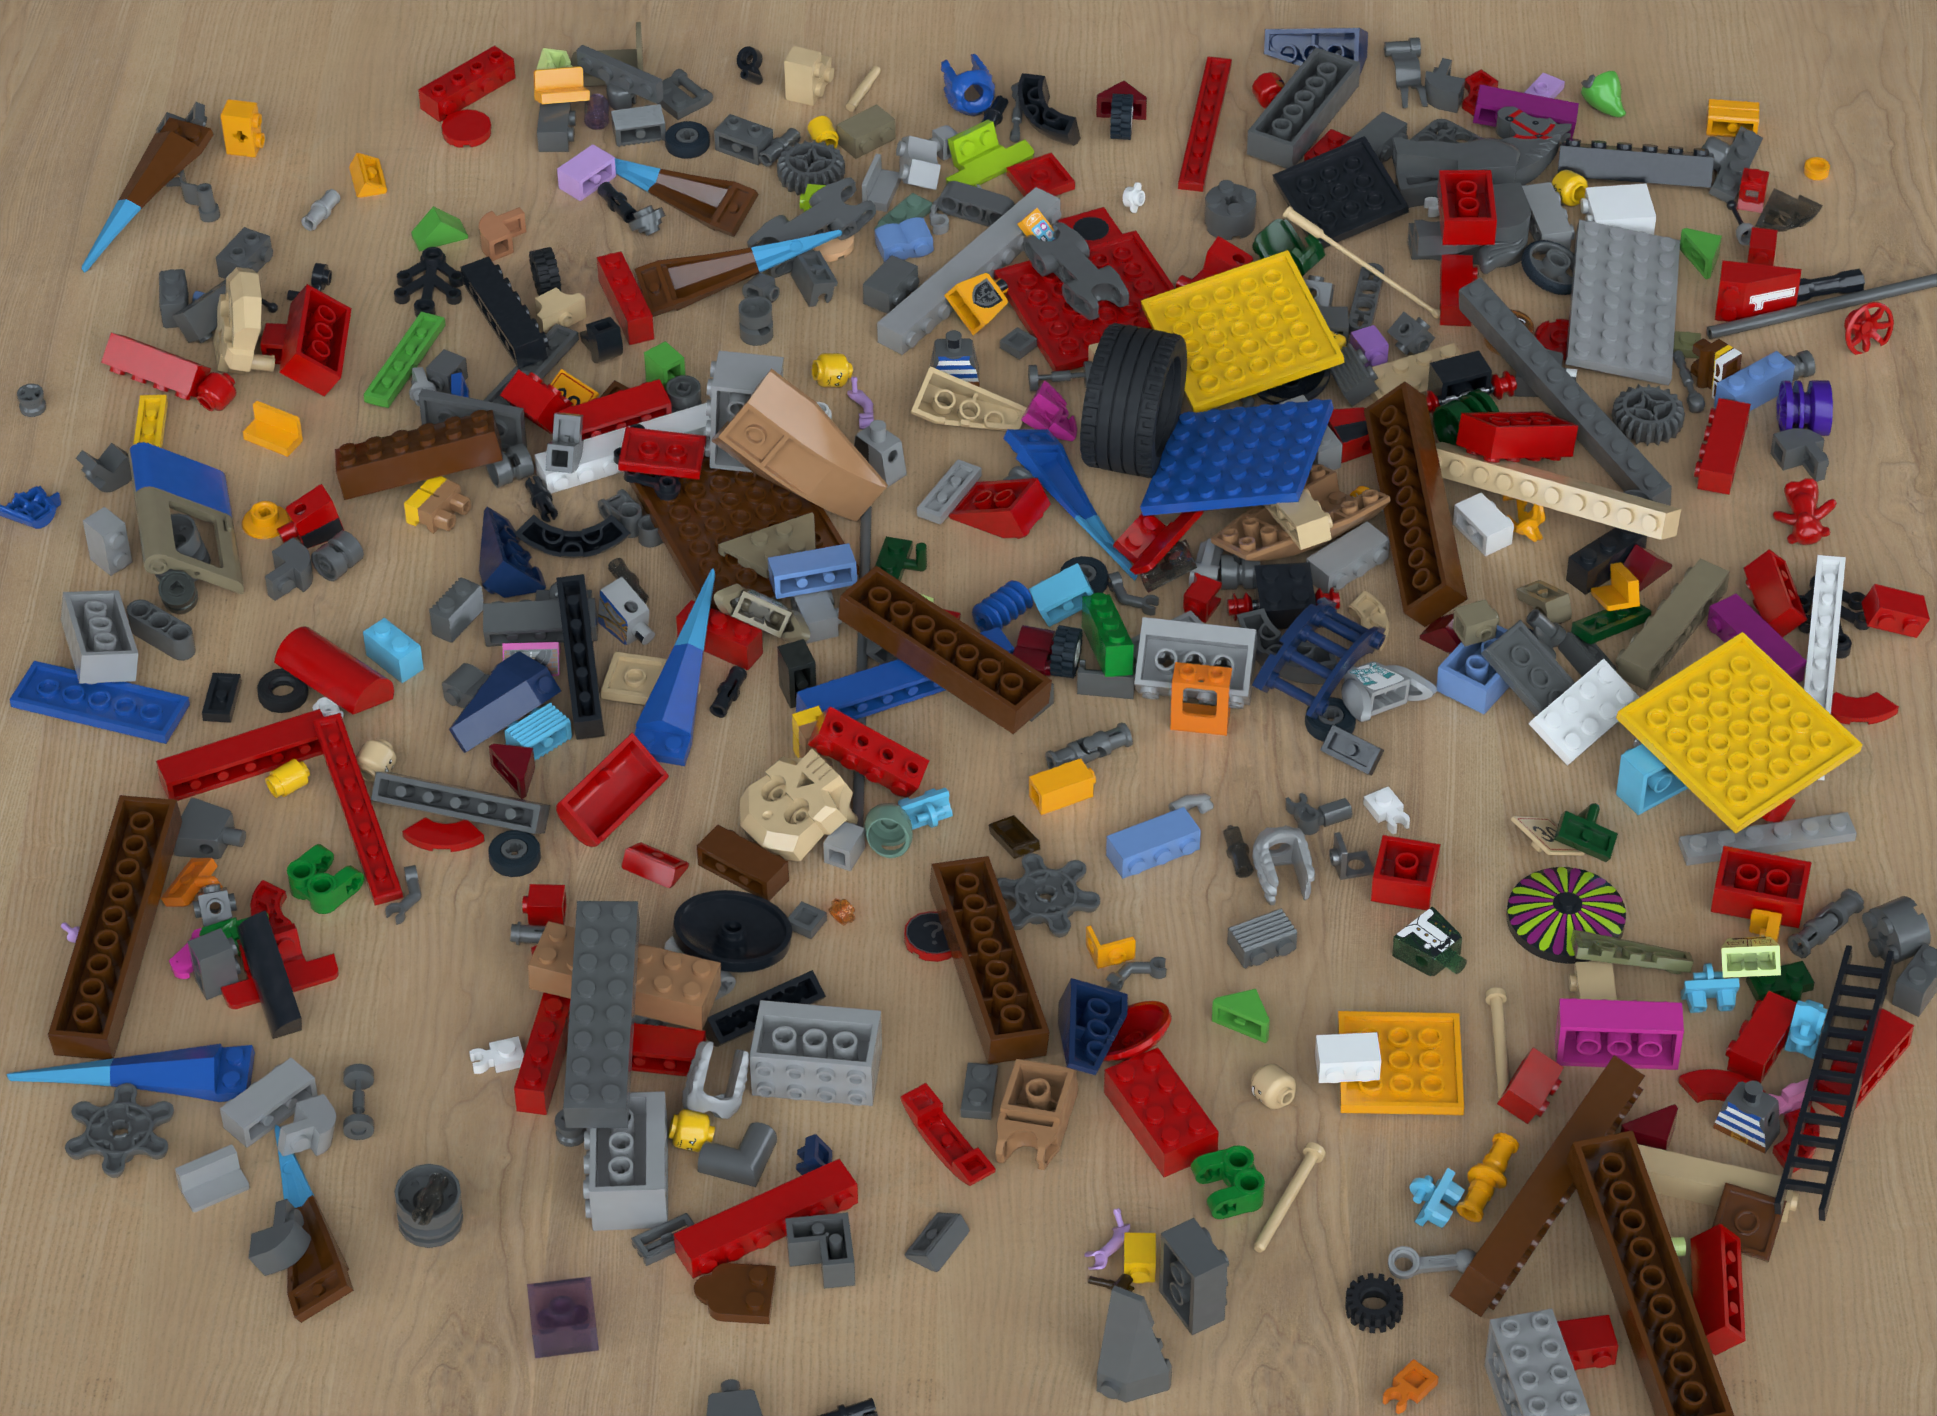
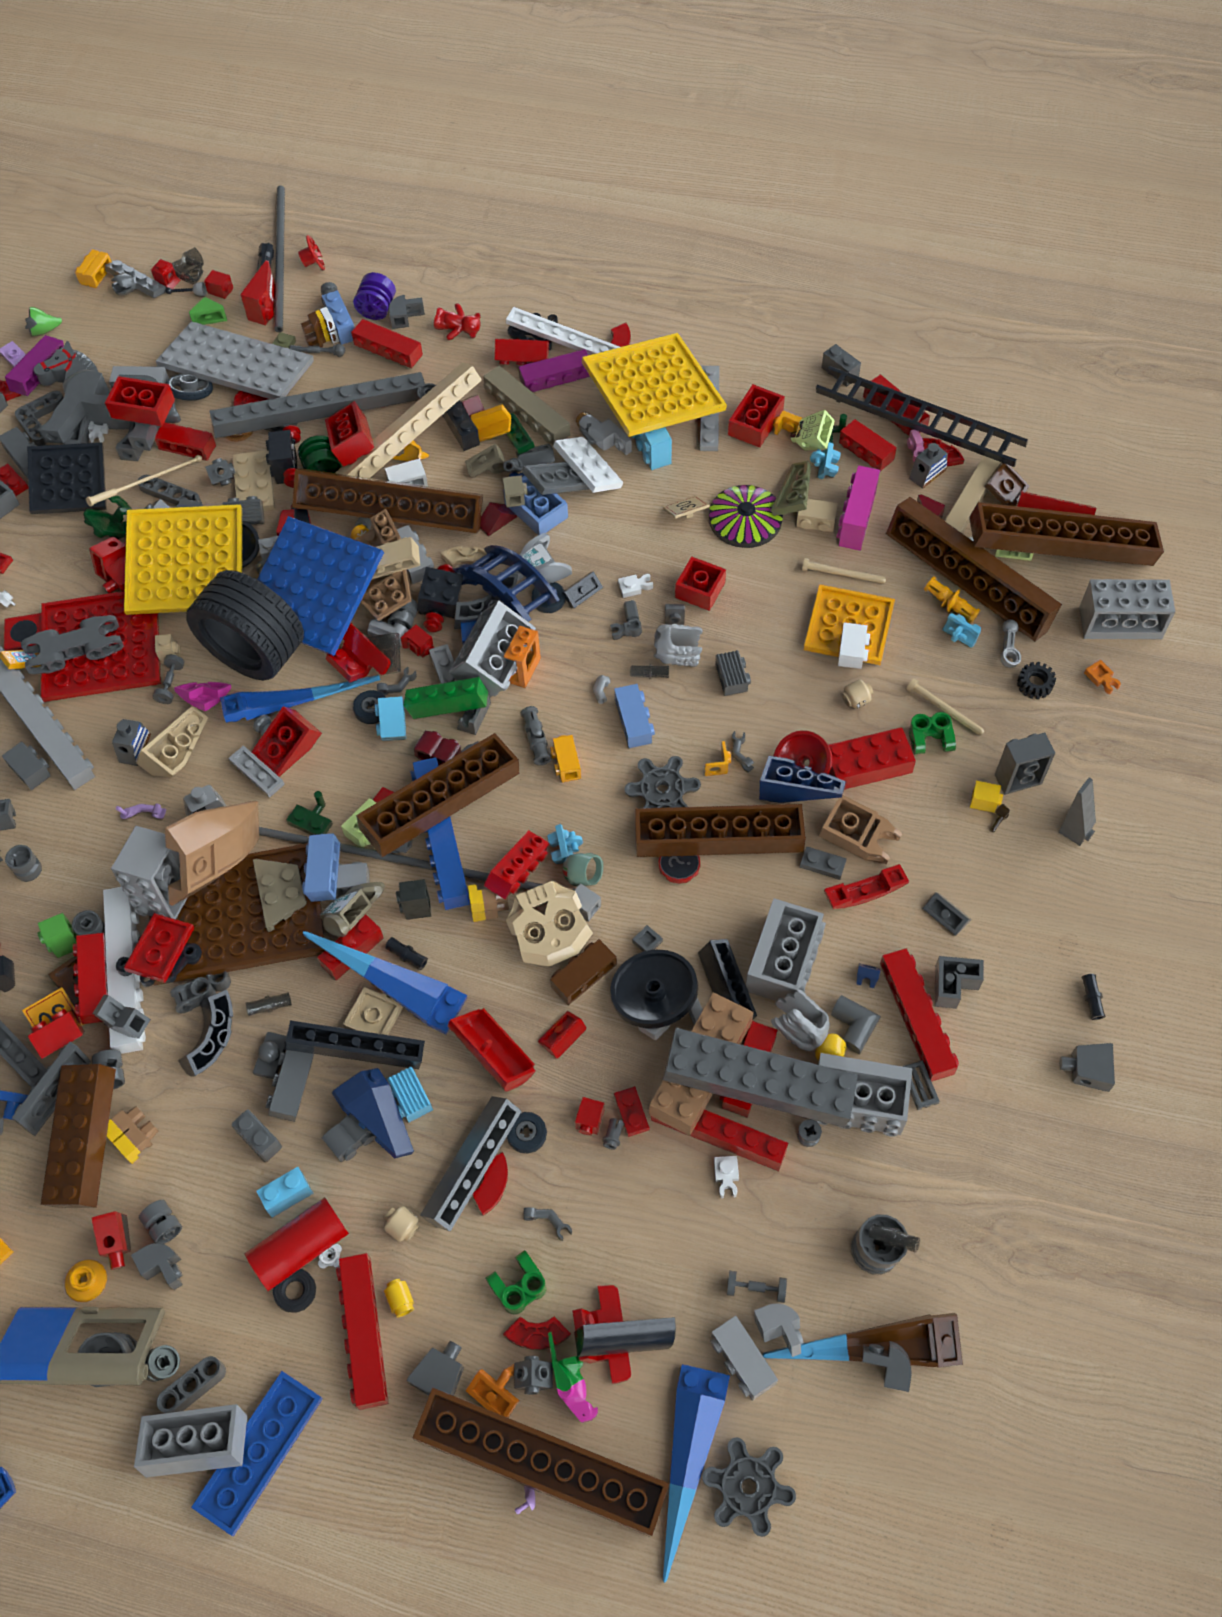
camera: 75 degrees left, 15 degrees up
(107, 541) = (73, 1420): light grey brick -> none
(211, 1178) = (812, 1414): light grey panel -> none
(214, 962) = (598, 1381): dark grey brick -> none
(221, 697) = (287, 1342): black plate -> none
(357, 809) = (451, 1244): red tile -> none
(504, 562) = (217, 1092): dark blue wedge -> none
(514, 765) = (440, 1117): dark red slope -> none
(541, 499) = (152, 1053): black pin -> none
(543, 652) = (322, 1082): panel -> none
(562, 1317) = (994, 1164): clear purple brick -> none
(624, 613) = (311, 1006): light grey torso -> none
(738, 1292) = (975, 1044): reddish brown plate -> none
(831, 370) = (98, 822): yellow head -> none
(842, 911) = (646, 915): clear orange plate -> none
(978, 300) = (74, 712): light orange torso -> none
(1002, 606) = (388, 760): blue piece -> none
(1014, 836) = (604, 795): dark brown tile -> none
(1018, 343) = (122, 698): dark grey plate -> none
(1066, 651) = (448, 725): black wheel -> none
(1112, 1246) = (959, 804): lavender piece -> none
(1230, 210) = (49, 544): dark grey brick -> none
(1243, 1014) = (794, 695): bright green slope -> none
(1372, 345) = (217, 495): medium lavender brick -> none
(1430, 944) = (758, 586): clear green torso -> none
(1531, 1085) = (885, 562): red brick -> none
(1570, 187) = (116, 358): yellow head -> none
(1585, 835) = (690, 488): dark green plate -> none
(1590, 1341) = (1078, 580): red brick -> none
(1620, 207) = (150, 341): white brick -> none
(1637, 164) = (115, 321): brick -> none
(1648, 414) = (341, 371): dark grey gear -> none
(1710, 1084) = (896, 474): red tile -> none
(1806, 1028) = (872, 418): medium azure hips -> none
(1816, 168) = (156, 244): light orange tile -> none
(1825, 923) = (791, 400): dark grey piece -> none
(1895, 610) = (556, 301): red brick -> none
(1896, 928) = (807, 363): dark grey brick -> none

